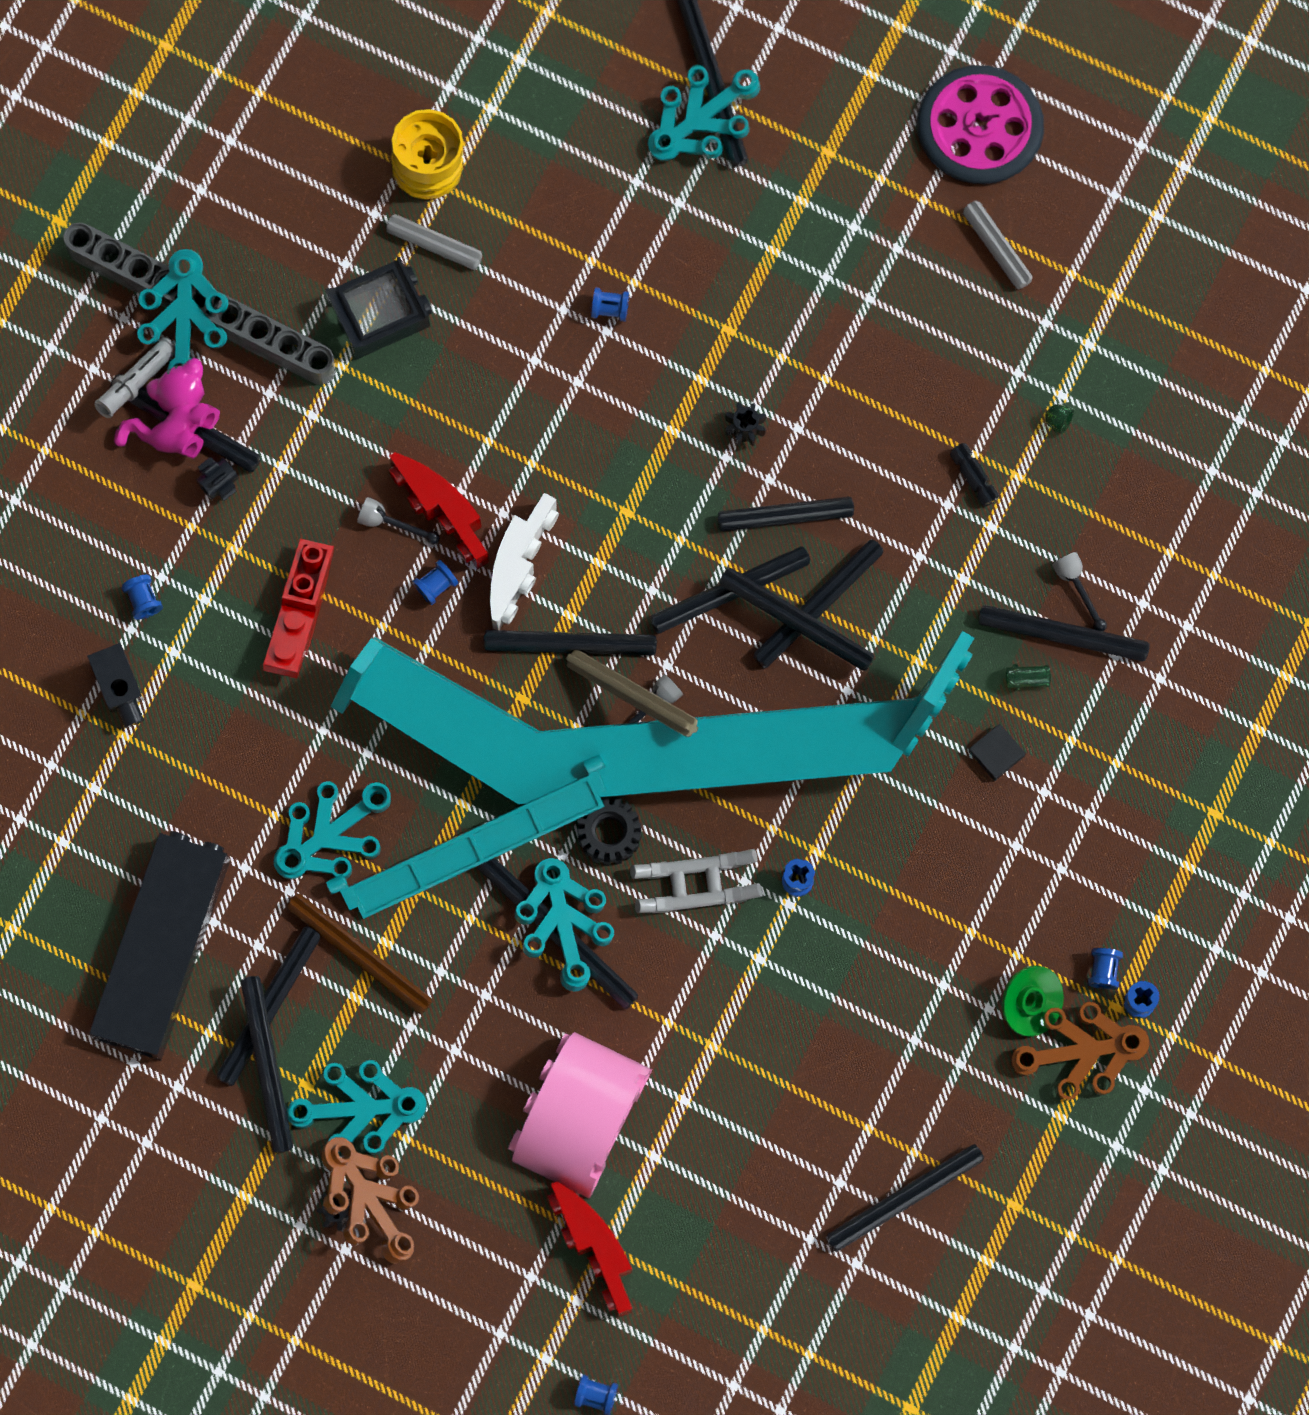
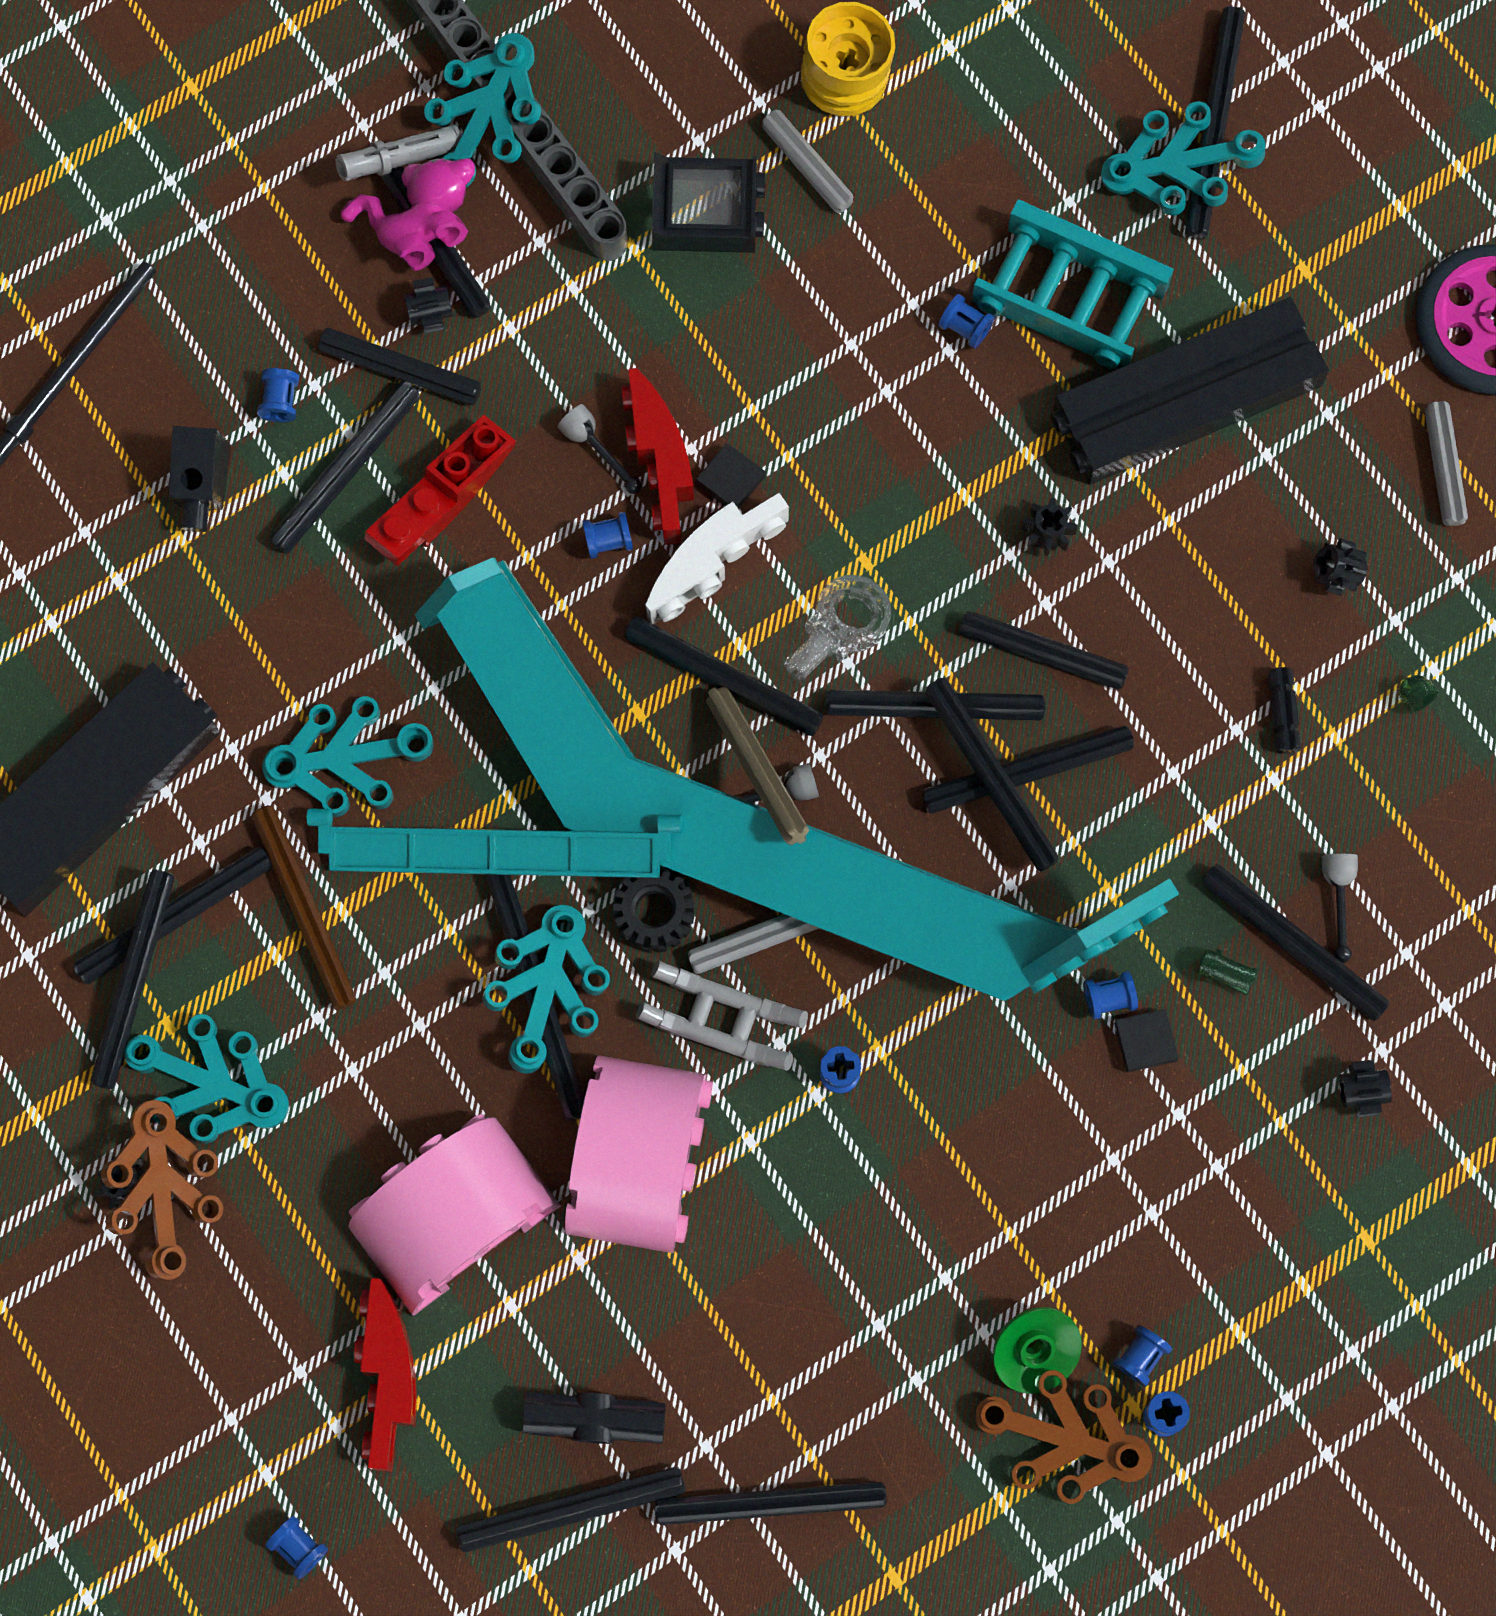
camera: 30 degrees right, 0 degrees up
(217, 625) = (344, 467): none -> black axle
(218, 533) = (399, 366): none -> black axle
(500, 498) = (730, 477): none -> black piece
(632, 573) = (832, 633): none -> clear pin
(686, 821) = (746, 942): none -> light grey axle
(688, 214) = (1072, 244): none -> teal fence
(690, 1006) = (636, 1153): none -> bright pink cylinder
(754, 1201) = (594, 1418): none -> black piece
(770, 1272) = (570, 1509): none -> black axle
(792, 280) = (1188, 391): none -> black brick
(957, 732) = (1110, 995): none -> blue bush
(962, 354) = (1340, 566): none -> black gear
(1162, 710) = (1365, 1088): none -> black gear

